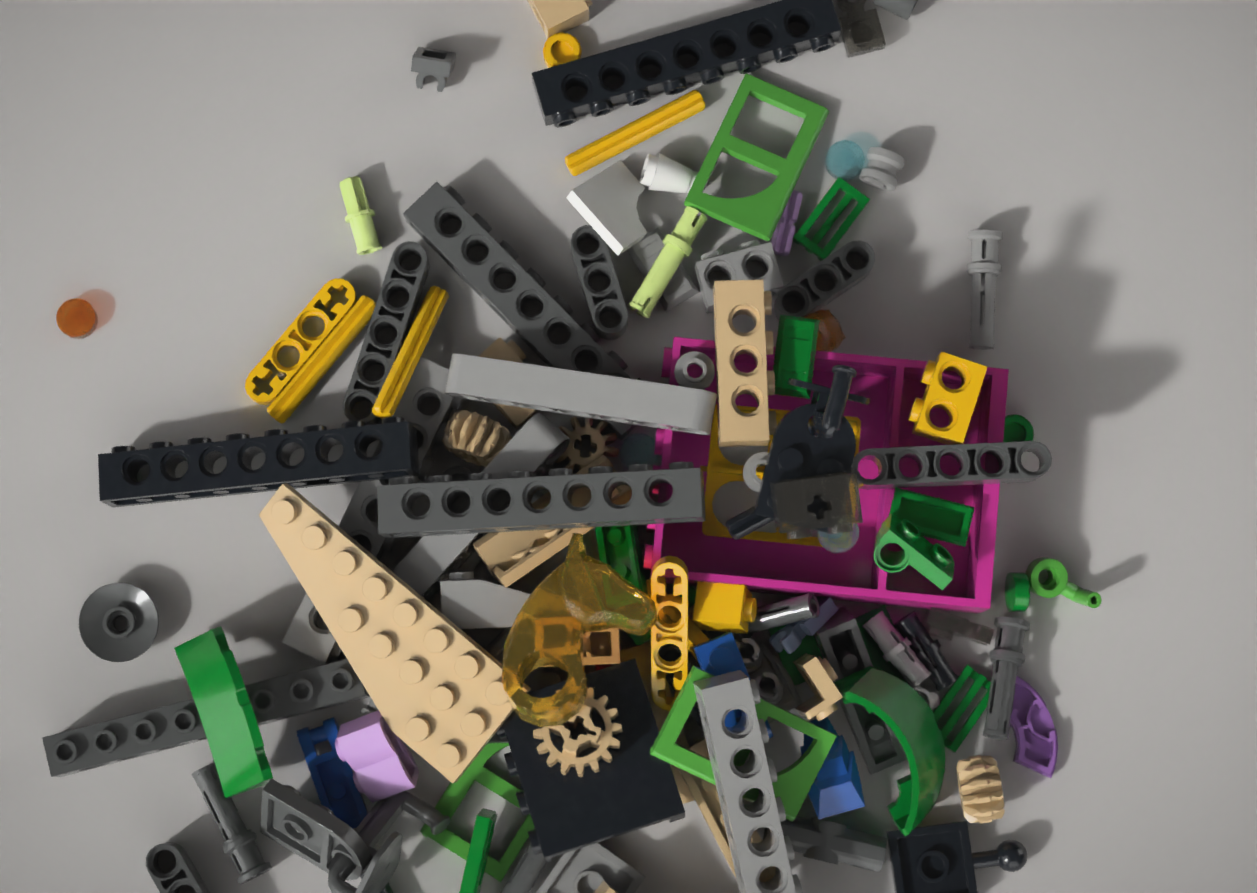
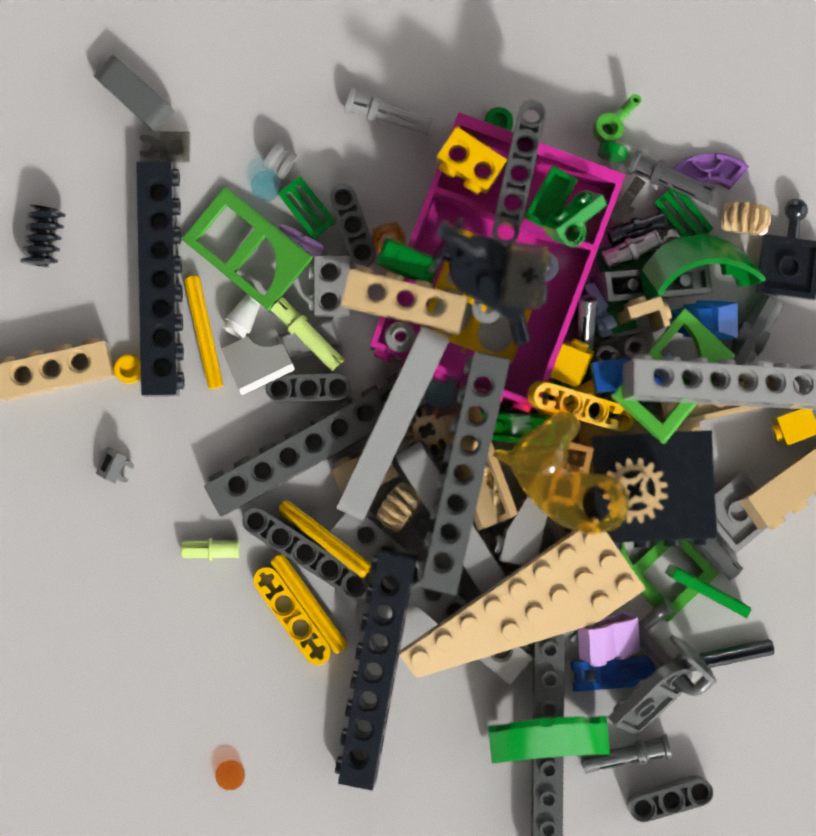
camera: 65 degrees left, 5 degrees up
(99, 617) = (464, 814): dark grey dish -> none

